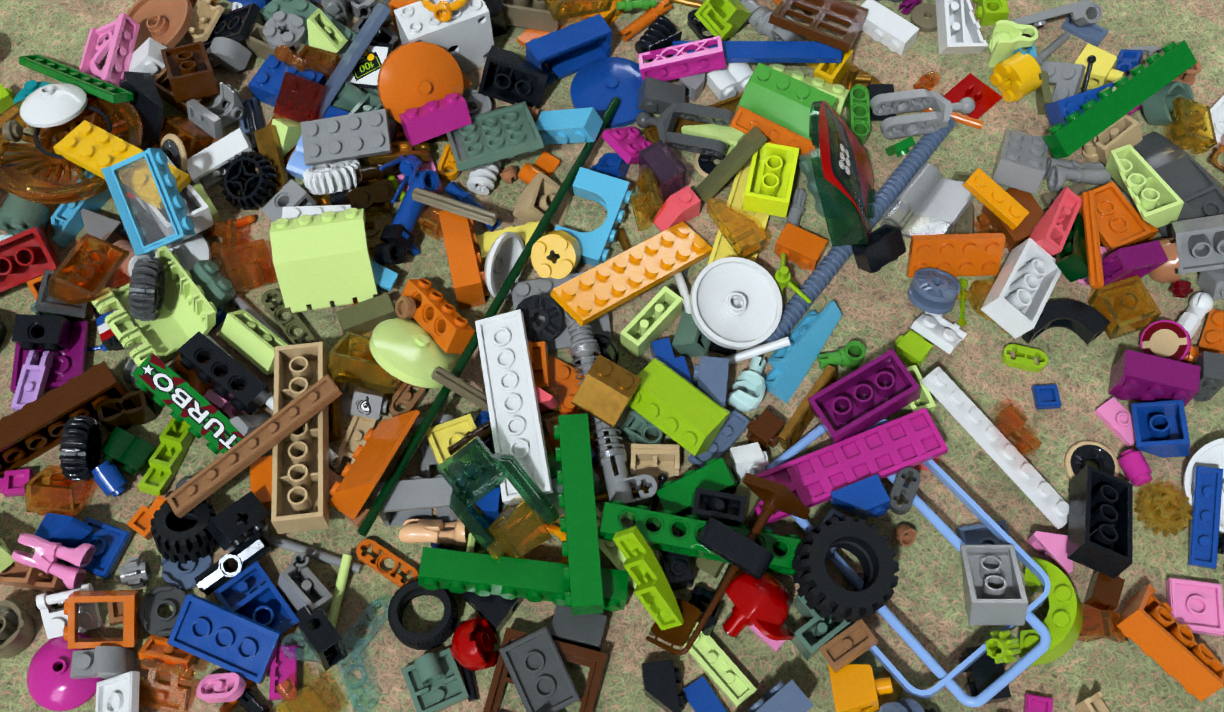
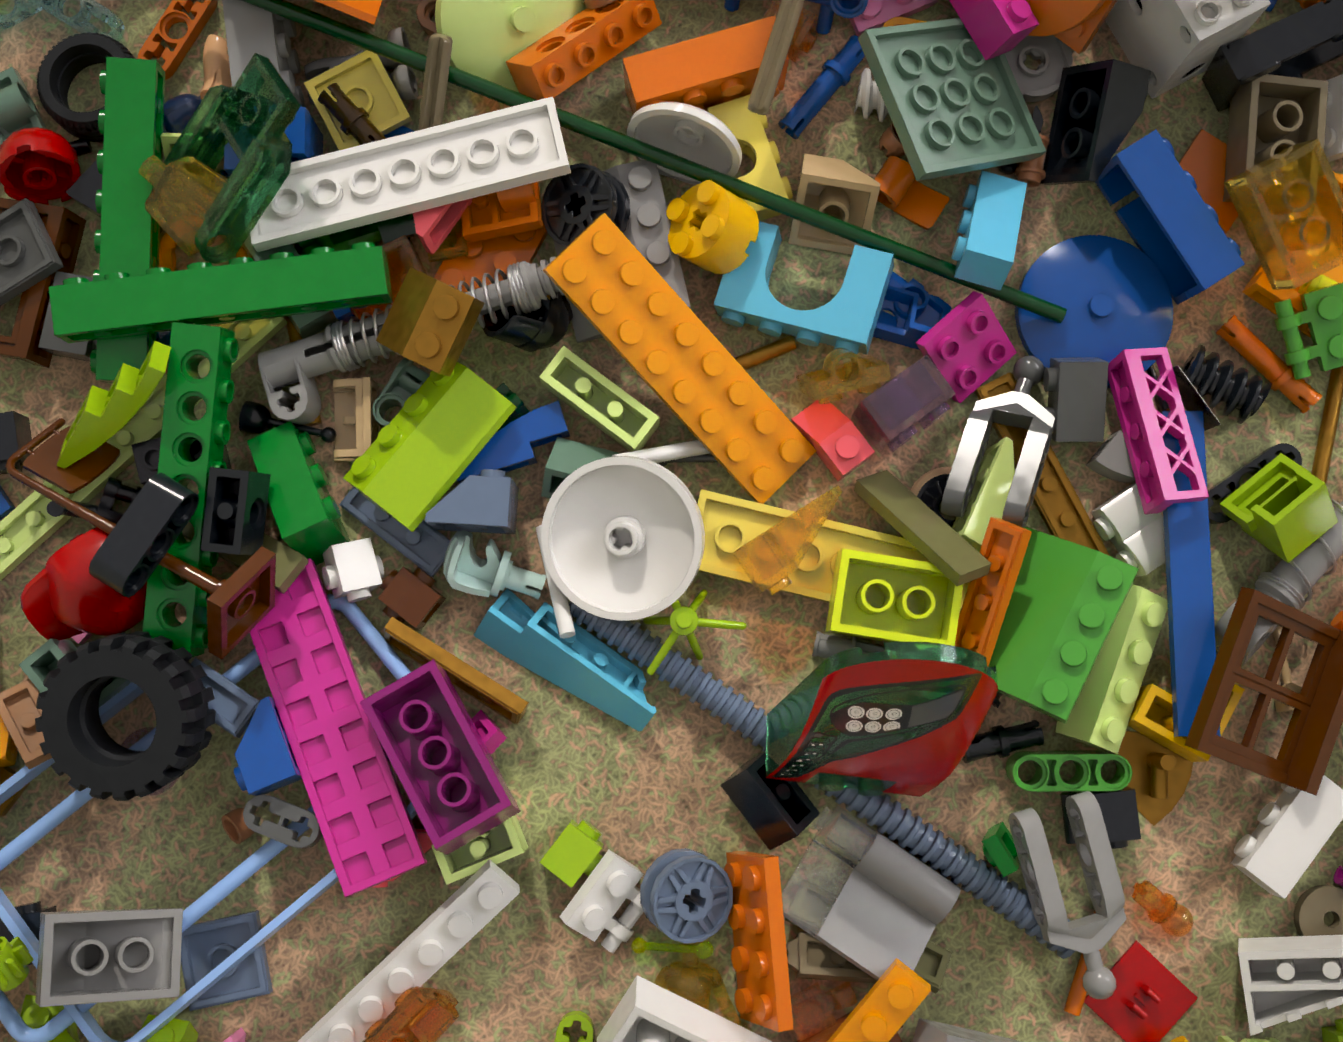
camera: 85 degrees right, 20 degrees up
(800, 246) = (770, 658): orange brick -> none
(842, 357) = (552, 727): bright green pin -> none

